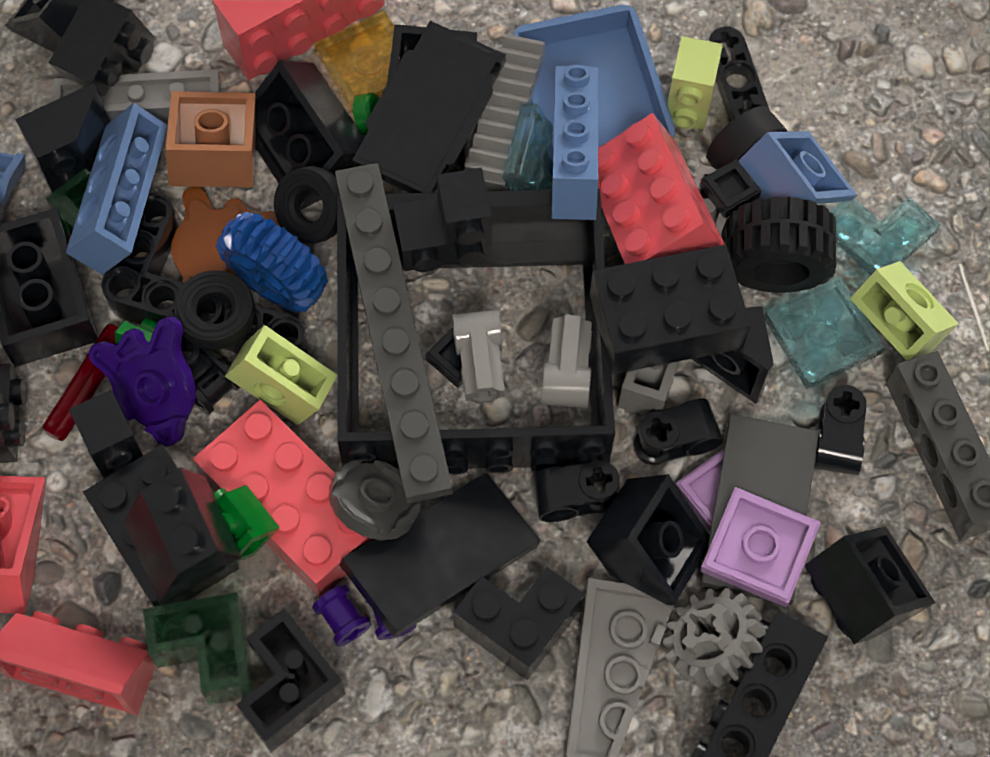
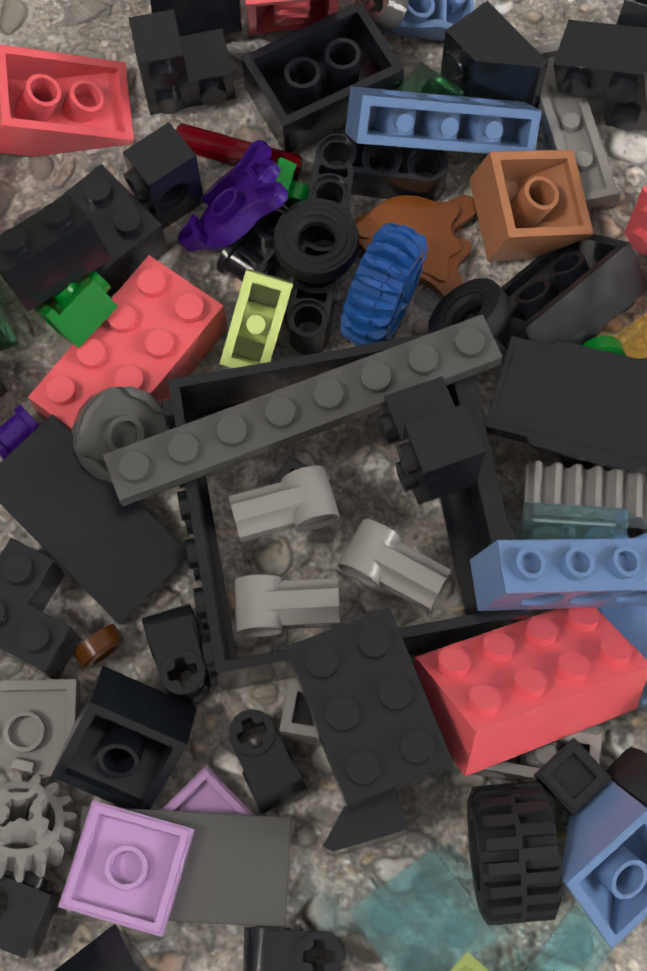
camera: 85 degrees right, 5 degrees up
(541, 285) = (381, 559): none -> light grey piece
(560, 557) = (98, 646): none -> reddish brown tile

